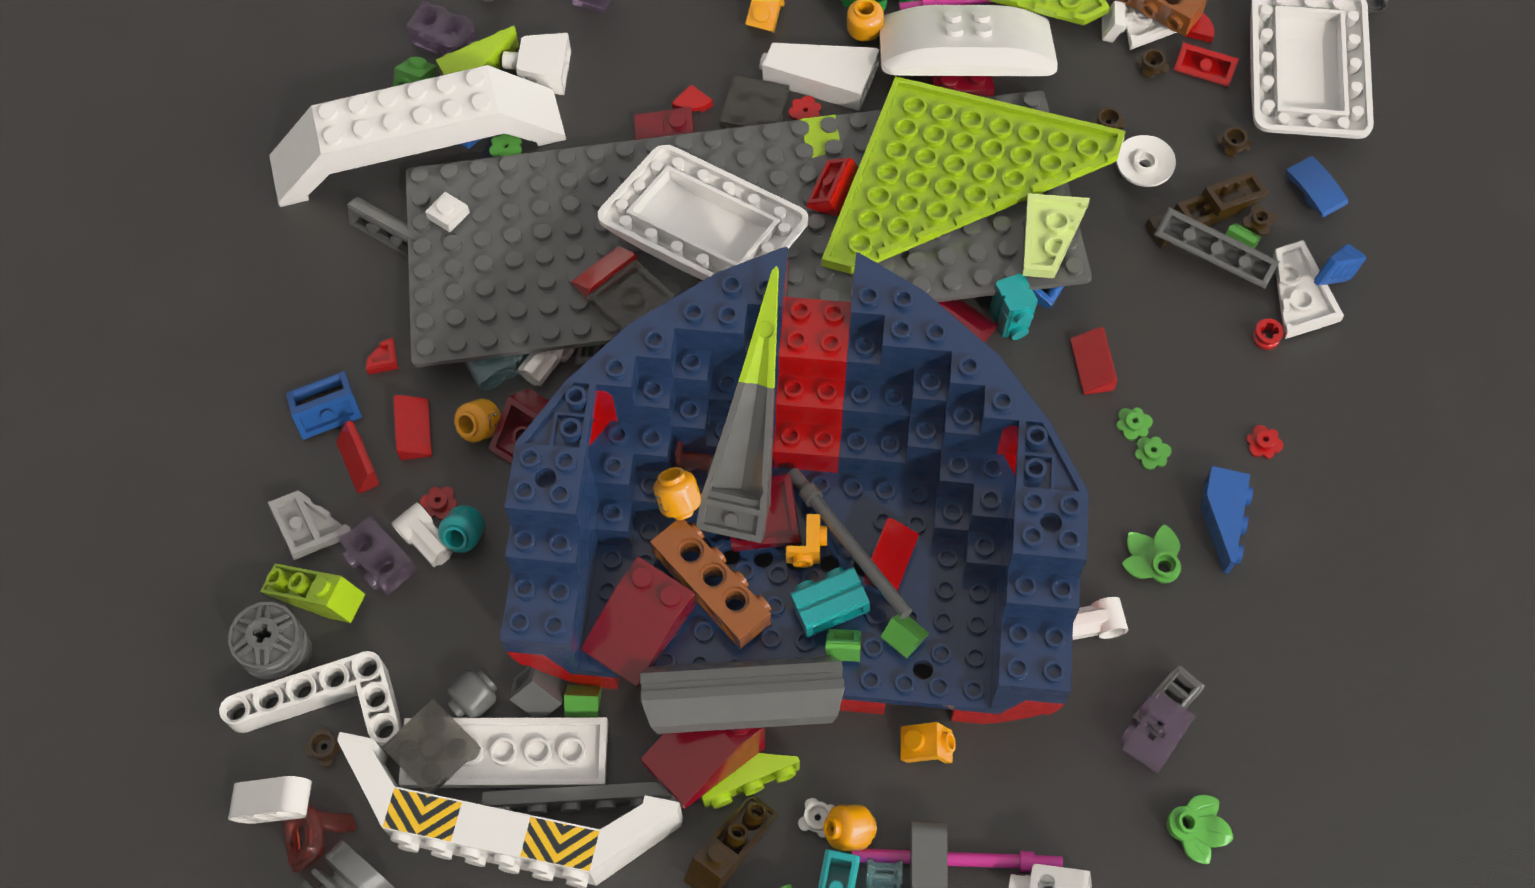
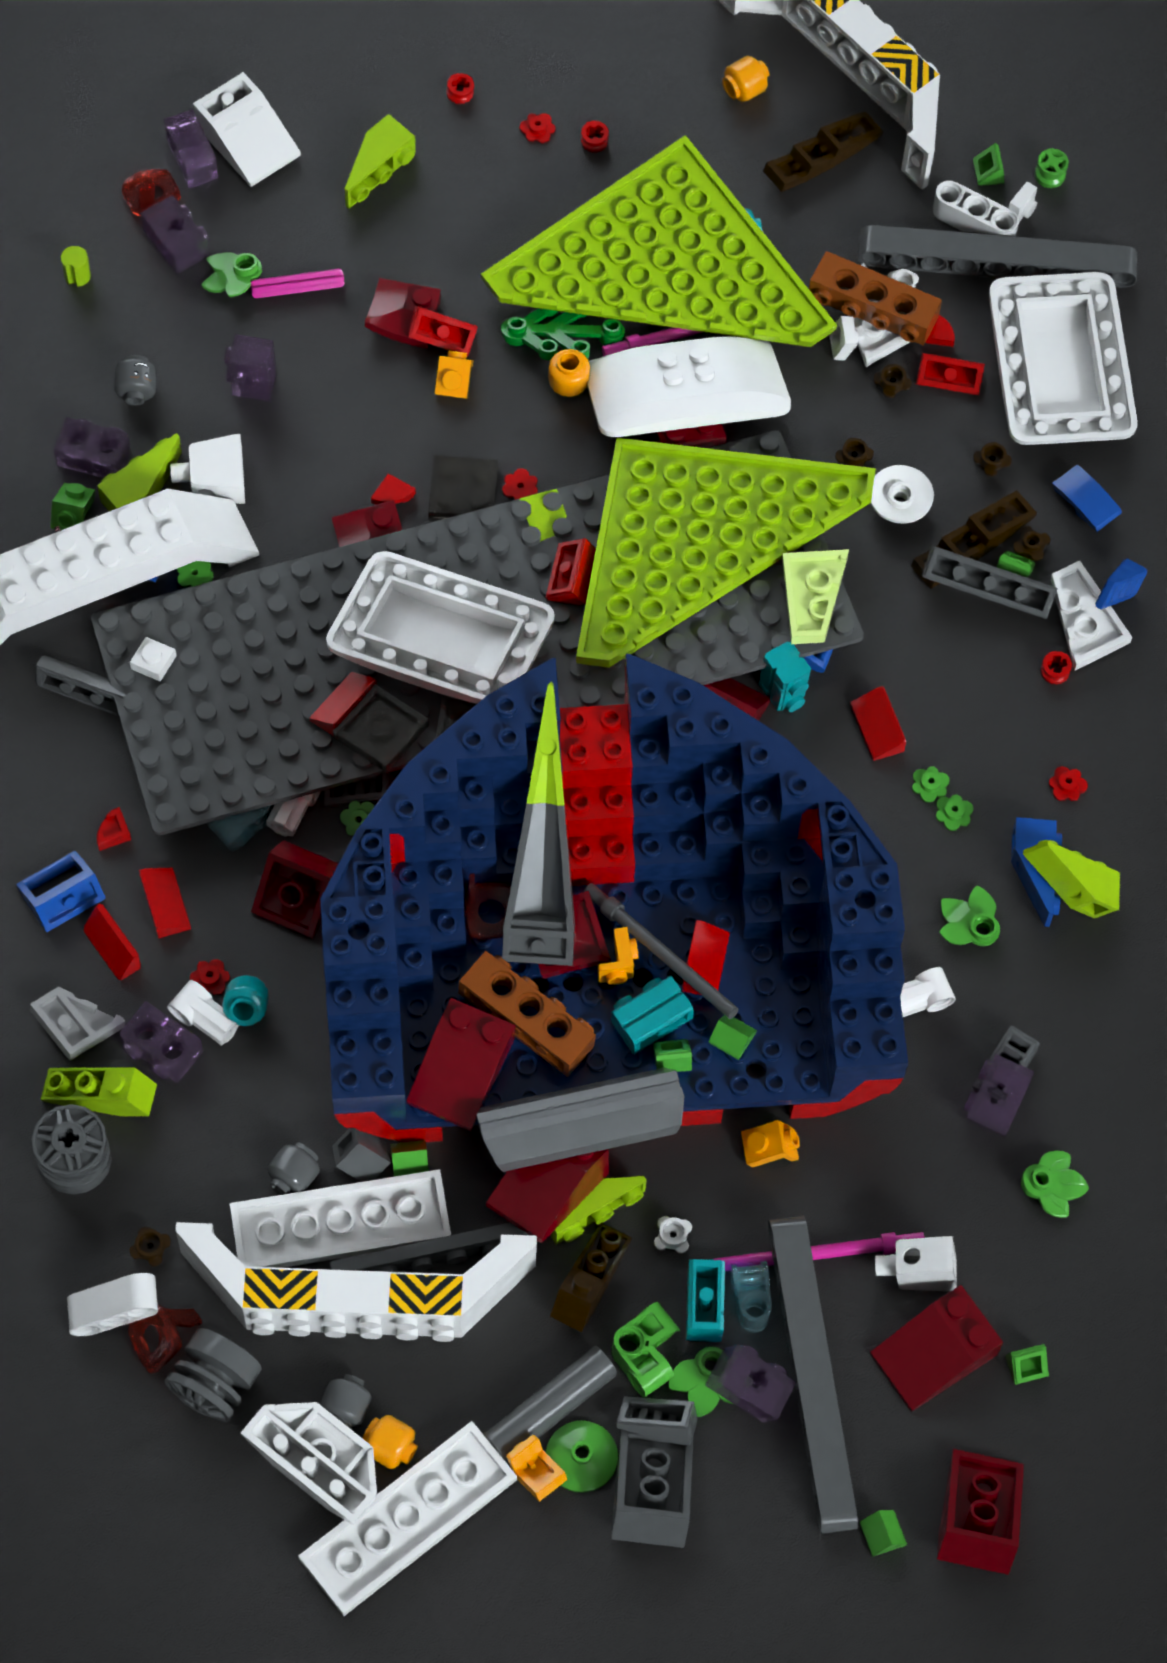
camera: 15 degrees left, 0 degrees up
(321, 695) = (137, 1194): white beam -> none
(431, 747) = (267, 1225): clear smoke plate -> none
(477, 420) = (236, 883): light orange head -> none
(677, 493) = (479, 927): light orange head -> none
(823, 71) = (532, 439): white slope -> none
(849, 827) = (708, 1237): light orange head -> none
(1263, 533) = (1079, 881): none -> lime slope

